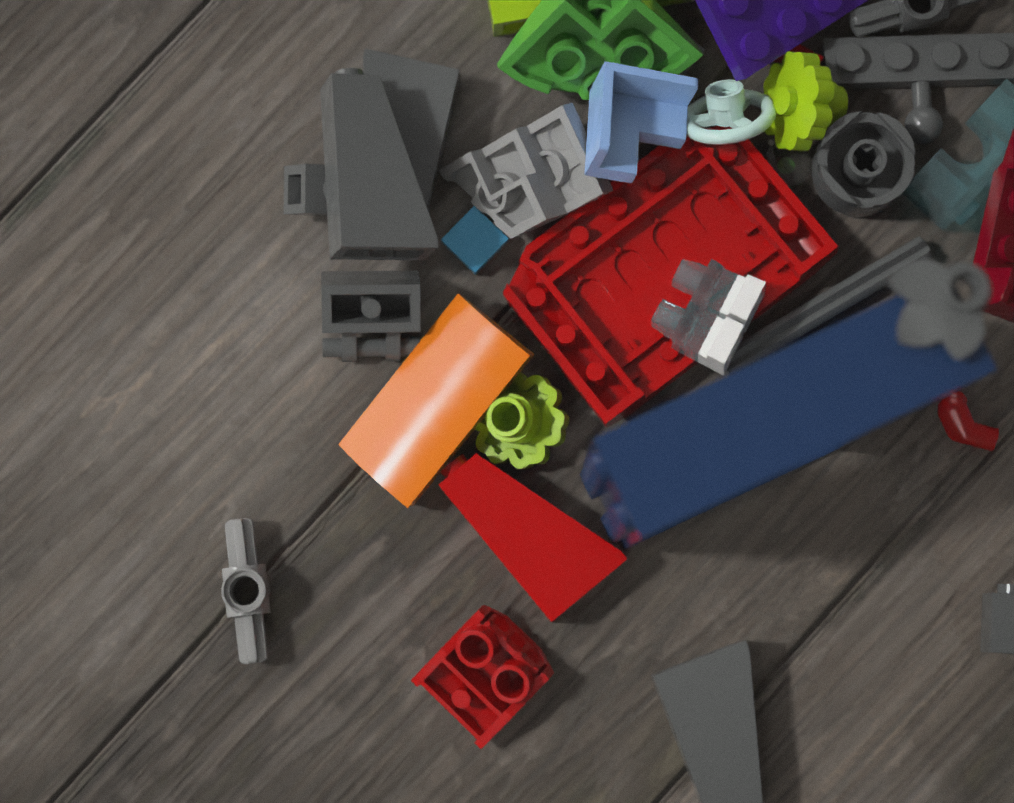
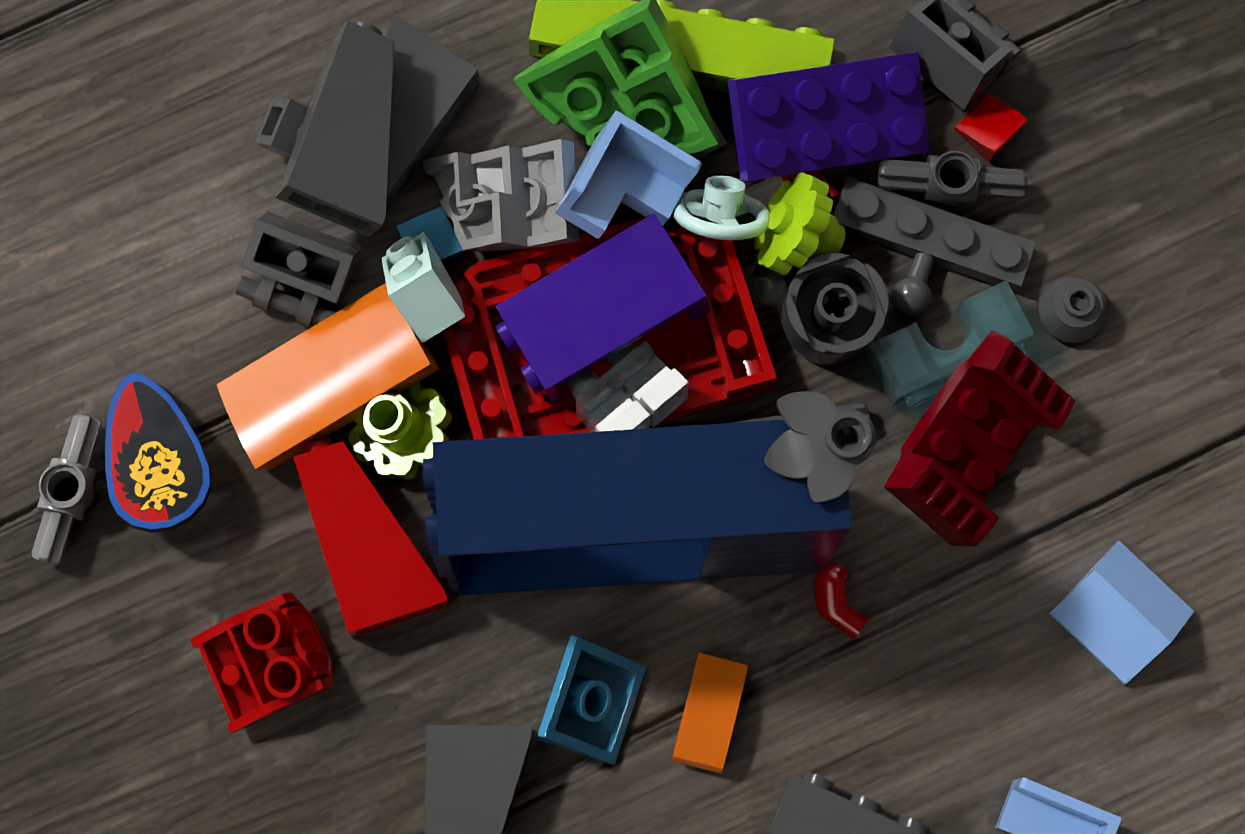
camera: 15 degrees right, 5 degrees down
(312, 534) = (153, 458): none -> shield
(490, 287) = (421, 286): none -> light aqua slope
(657, 243) = (599, 305): none -> dark purple panel
(784, 596) = (591, 701): none -> dark azure slope
(893, 565) = (710, 713): none -> orange slope

